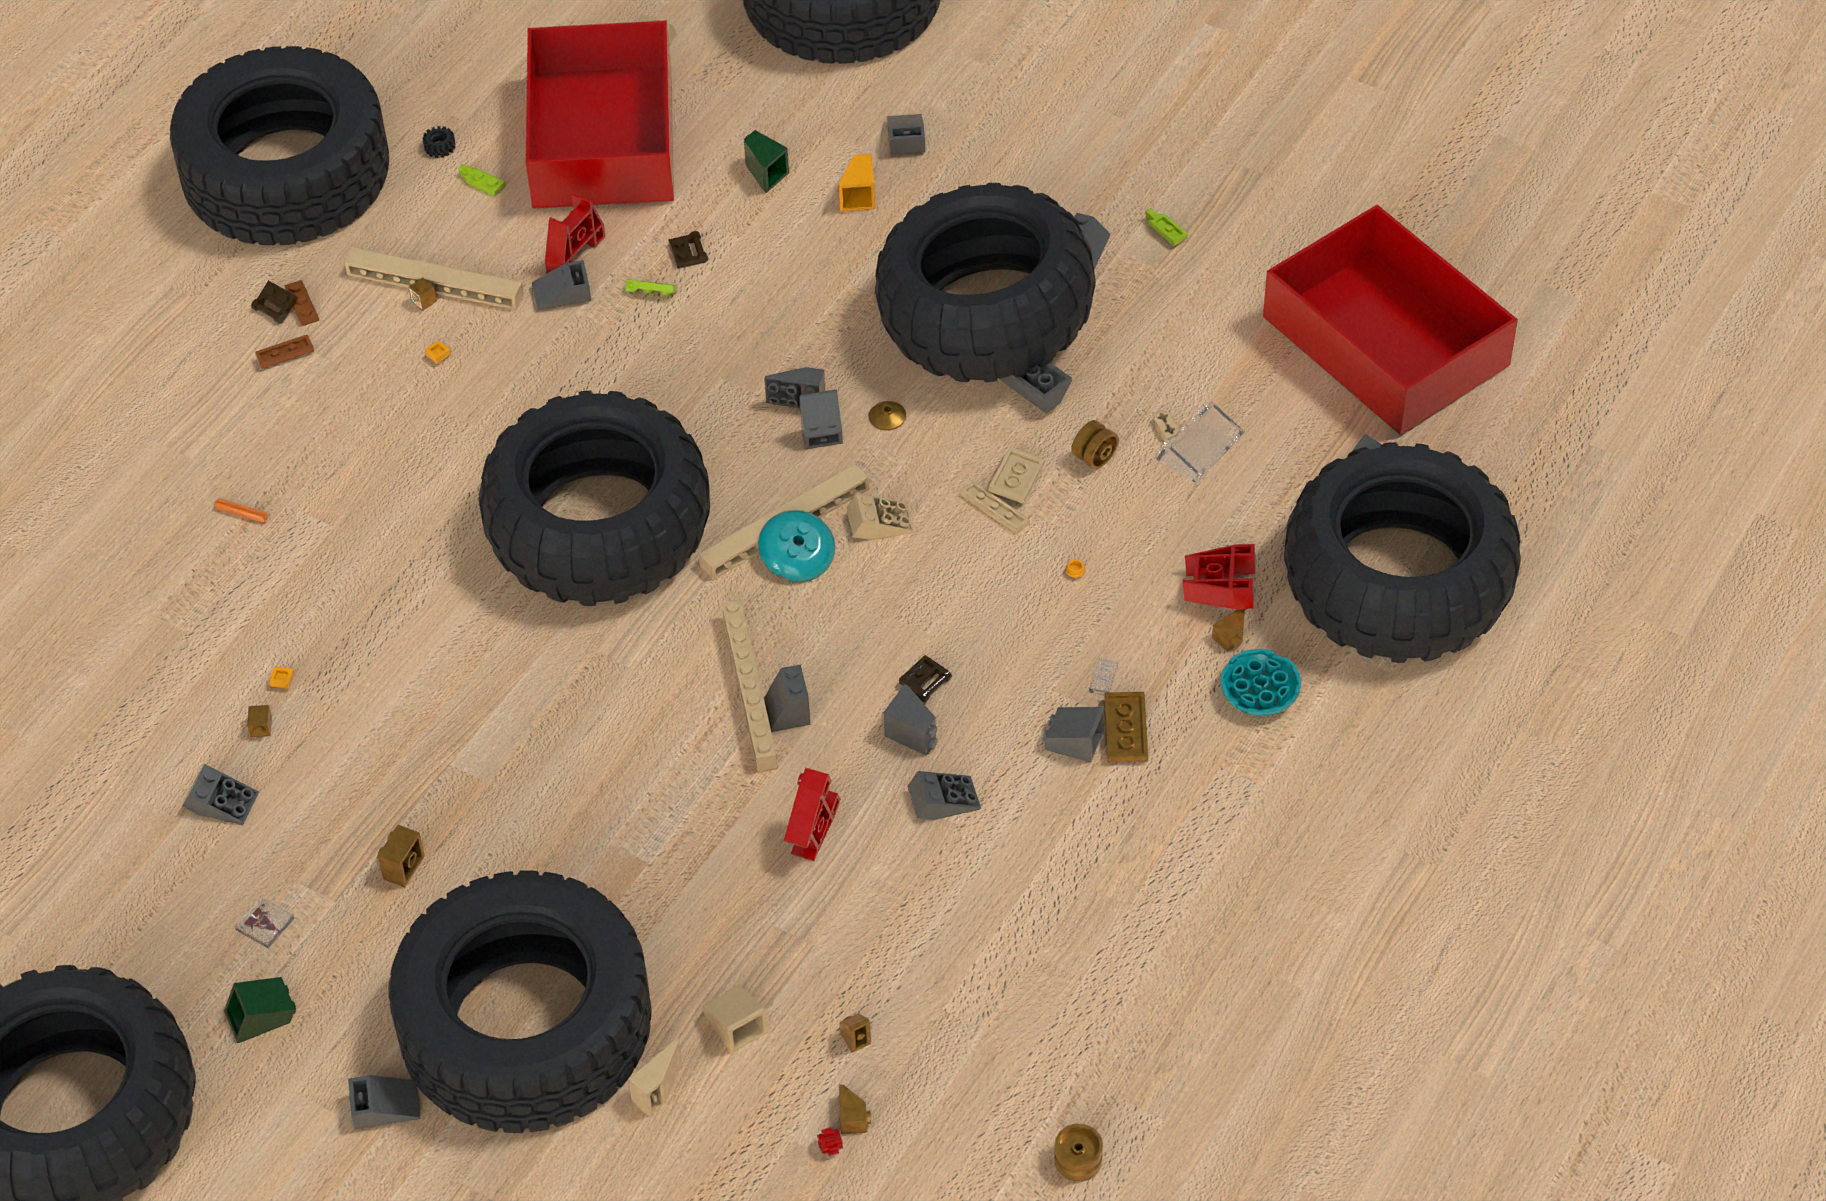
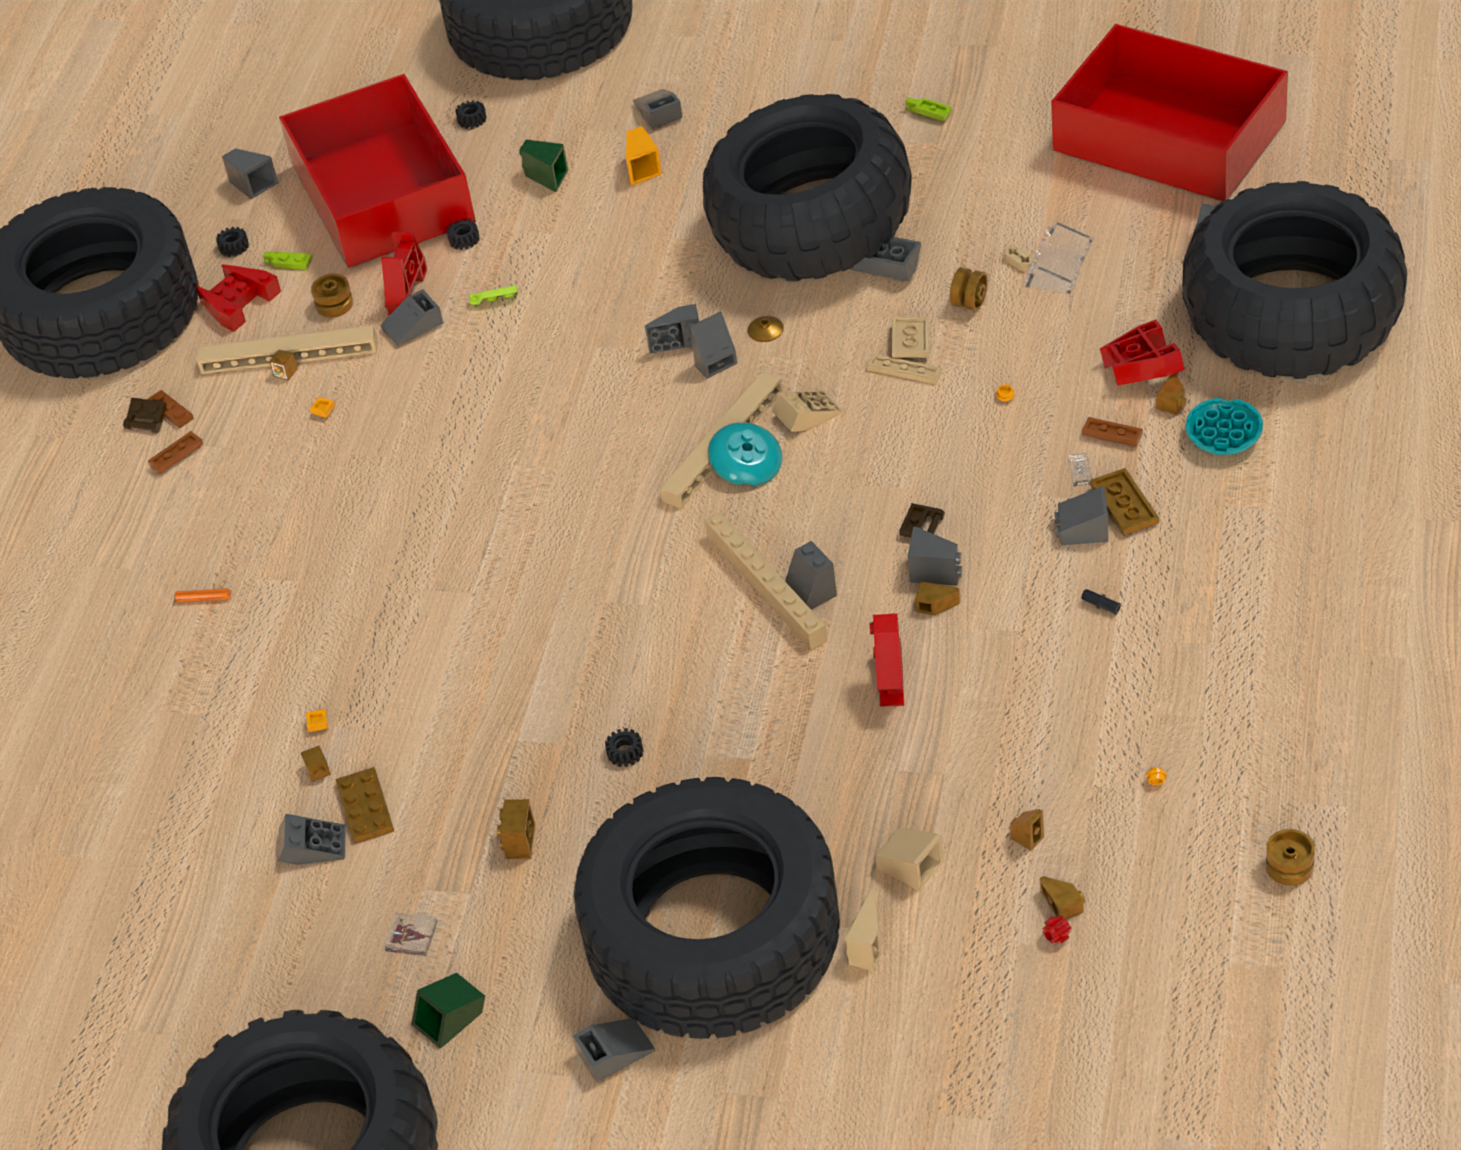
camera: 15 degrees left, 5 degrees down
(284, 778) = (364, 805): none -> pearl gold plate
(416, 199) = (235, 292): none -> red wedge
(487, 72) = (250, 171): none -> dark grey slope
(501, 234) = (332, 295): none -> pearl gold wheel
(536, 799) = (624, 756): none -> black tyre
(585, 439) = (553, 519): black tyre -> none
(652, 203) = (463, 234): none -> black tyre
(682, 252) = (508, 261): dark brown plate -> none
(725, 85) = (470, 114): none -> black tyre
(895, 762) = (936, 598): none -> pearl gold slope
(942, 795) = (992, 610): dark grey slope -> none
(1002, 1022) = (1156, 776): none -> light orange plate
(1048, 823) = (1101, 601): none -> black axle
(1154, 648) = (1112, 431): none -> dark orange plate

